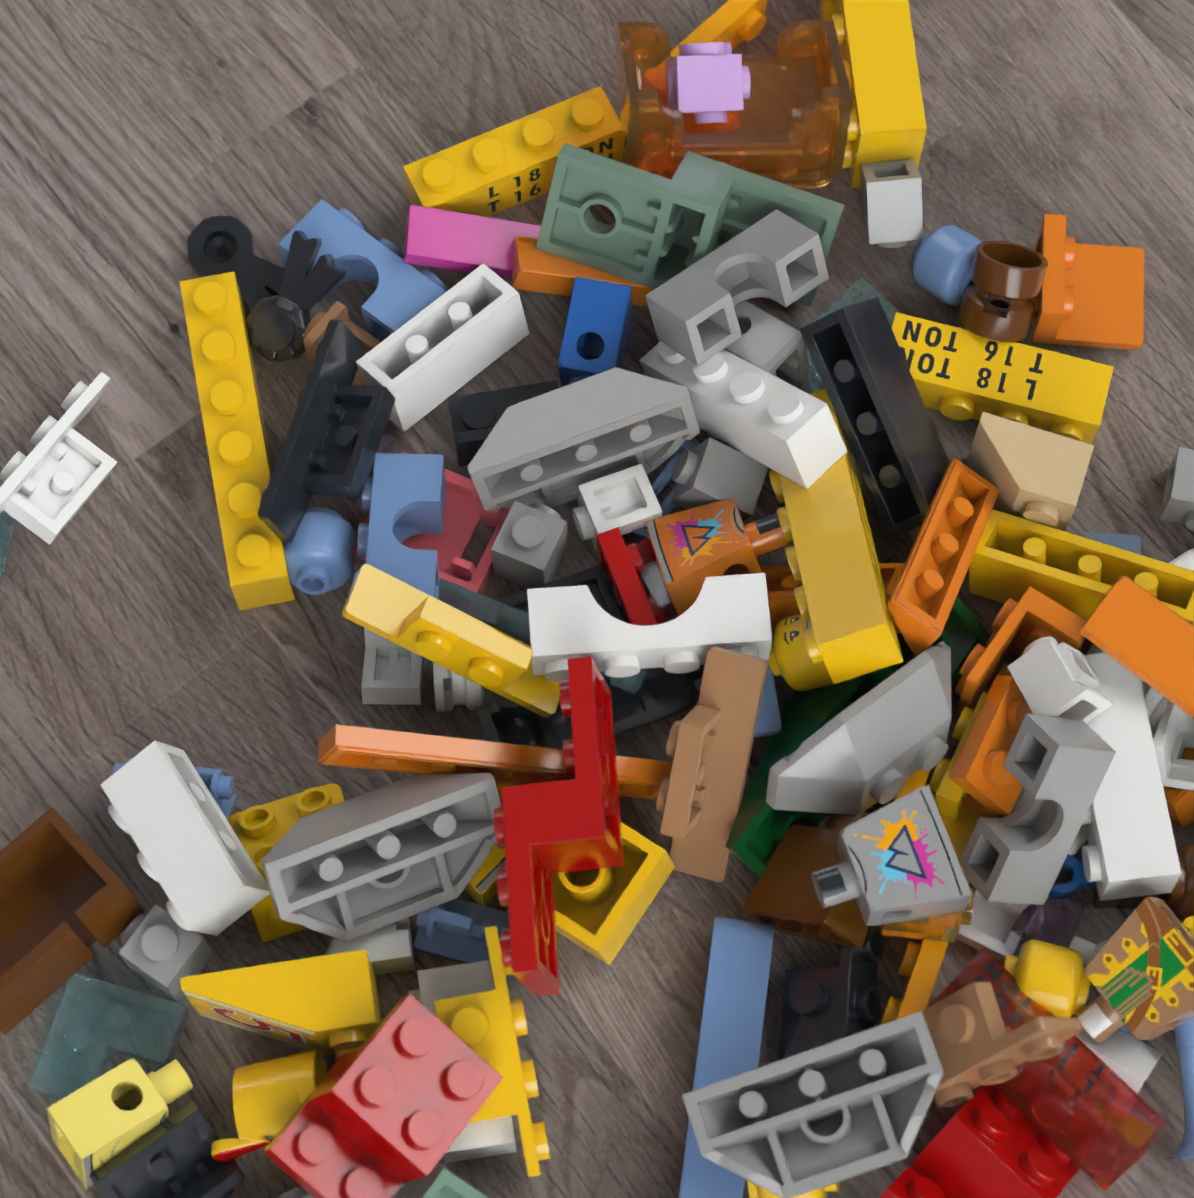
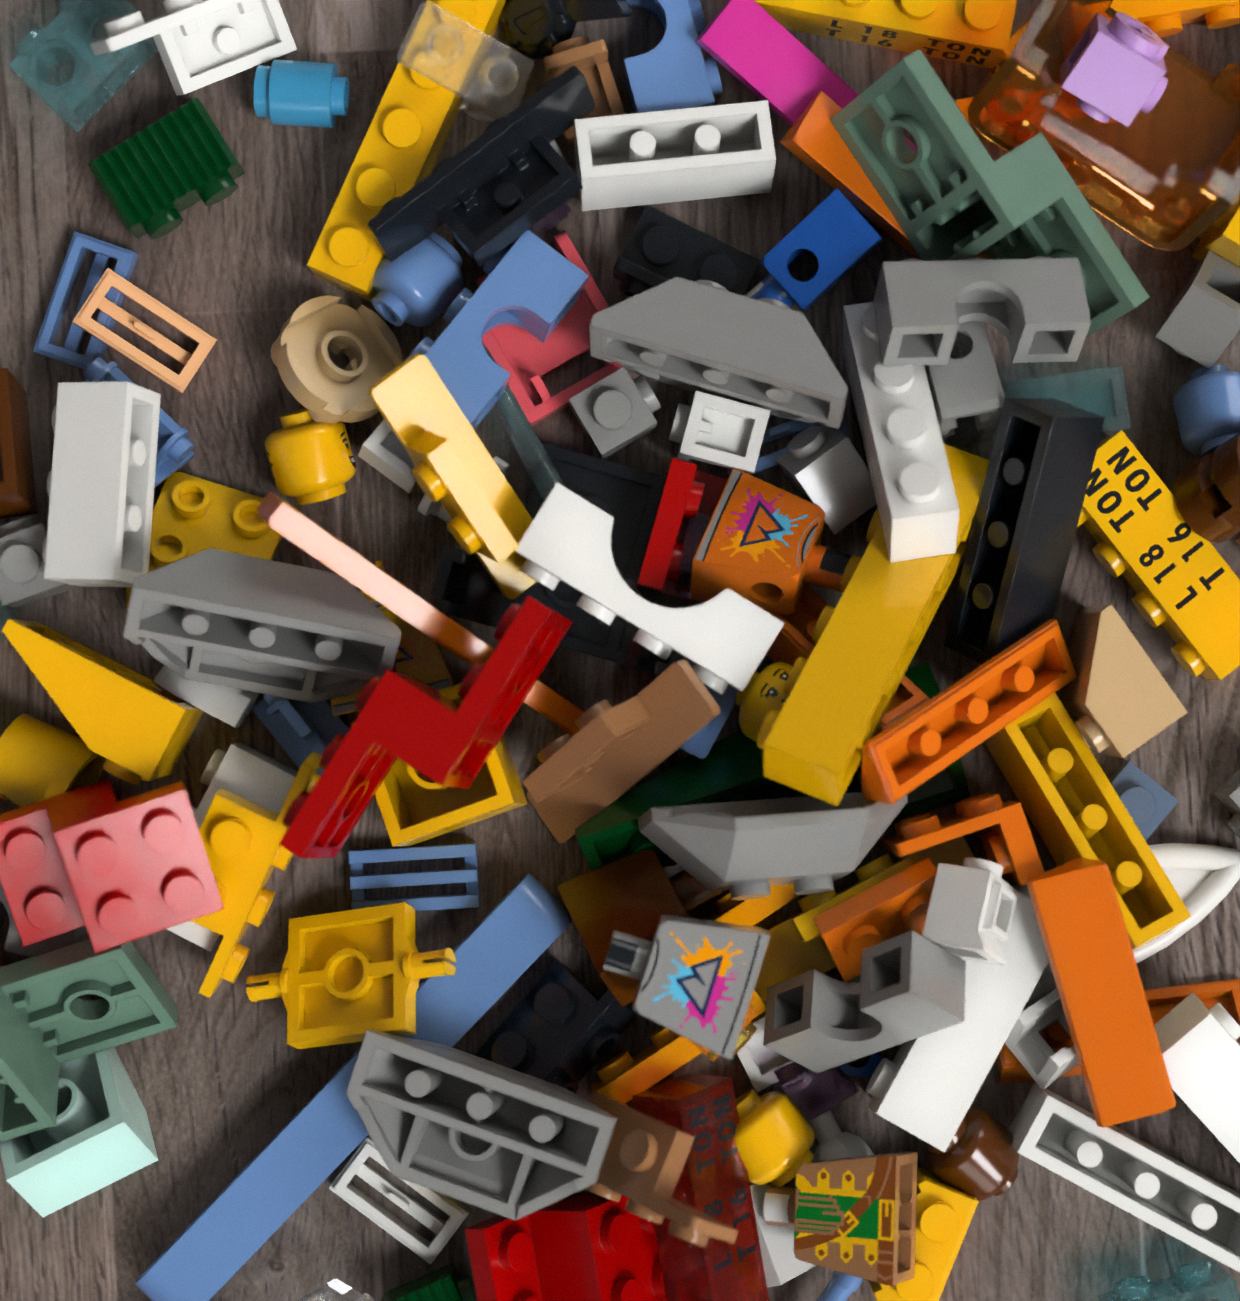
camera: 30 degrees right, 20 degrees up
(77, 602) = (167, 170): none -> dark green brick
(89, 785) = (62, 293): none -> medium blue tile
(141, 486) = (301, 93): none -> dark azure brick
(146, 705) = (98, 301): none -> light nougat tile
(251, 374) = (465, 62): none -> clear bracket
(274, 647) = (311, 375): none -> tan plate
(315, 716) = (310, 458): none -> yellow head
(633, 1084) = (351, 975): none -> yellow plate
(669, 955) = (360, 882): none -> medium blue tile

